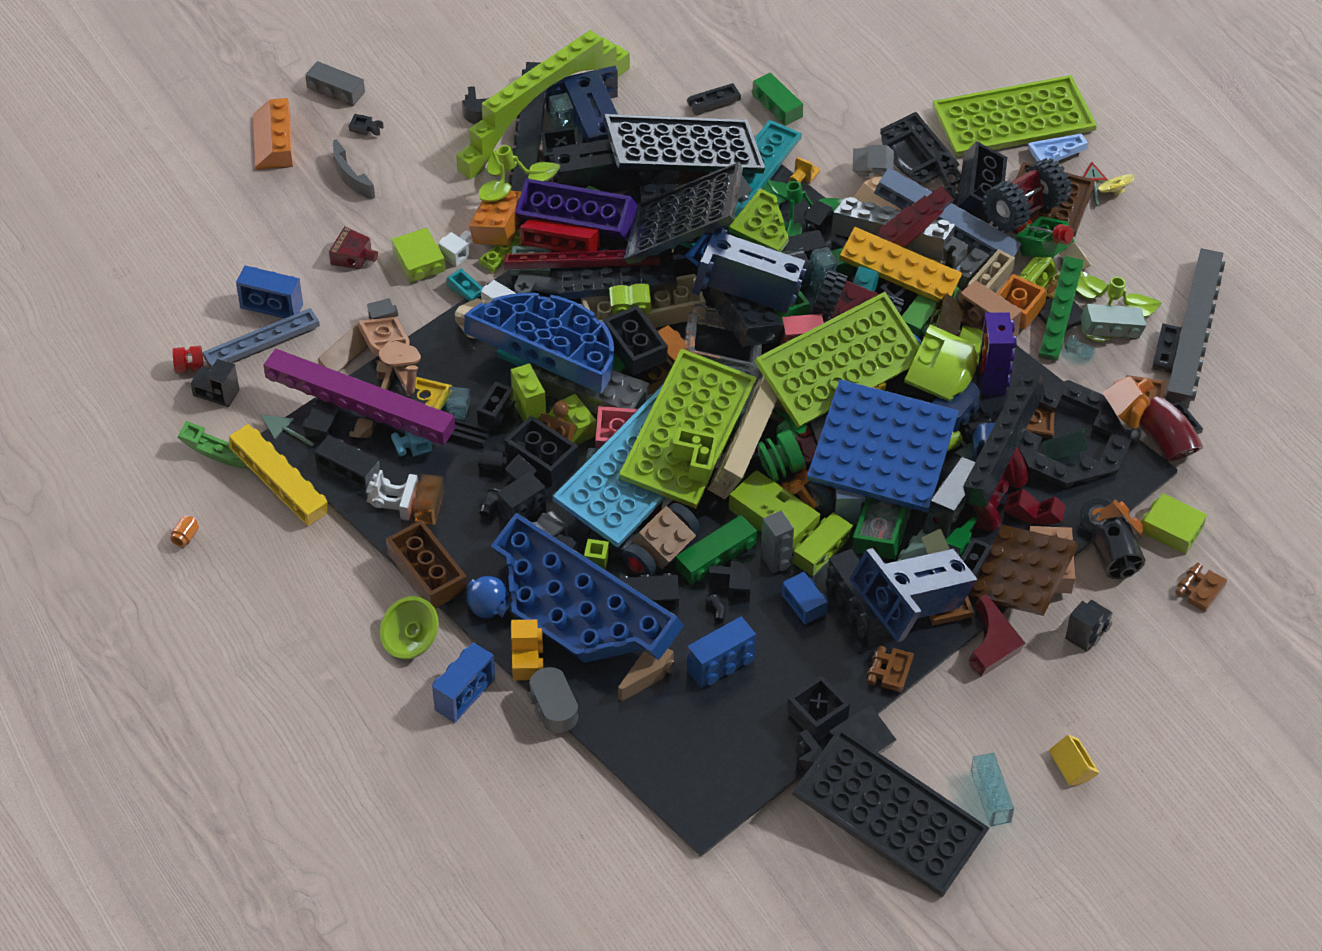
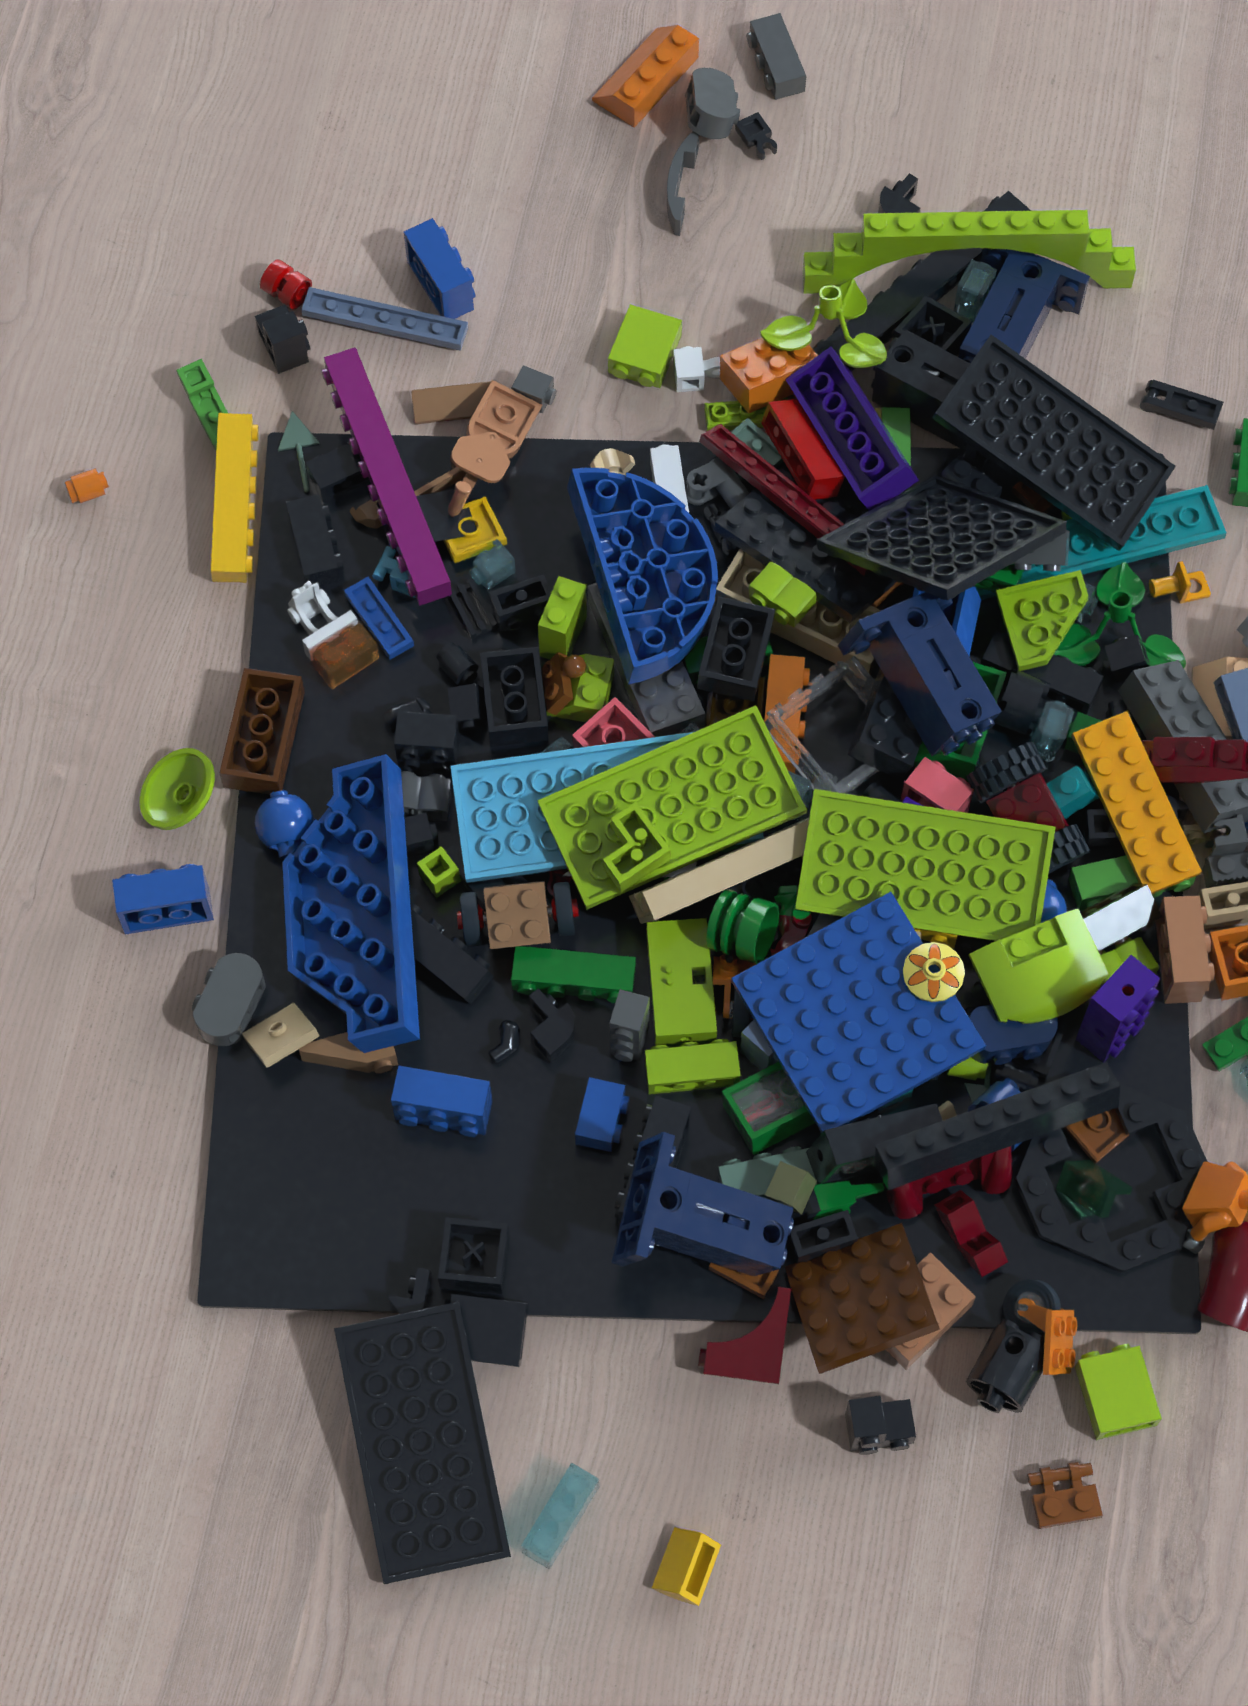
camera: 45 degrees right, 15 degrees up
(328, 123) = (711, 103): none -> dark grey brick
(351, 249) = (582, 283): dark red torso -> none
(406, 465) = (379, 618): none -> blue plate
(464, 285) = (653, 423): teal slope -> none
(526, 647) = (256, 920): light orange brick -> none
(601, 692) = (280, 1035): none -> tan plate
(896, 671) = (608, 1287): dark orange plate -> none
(897, 401) = (929, 985): none -> light yellow dish

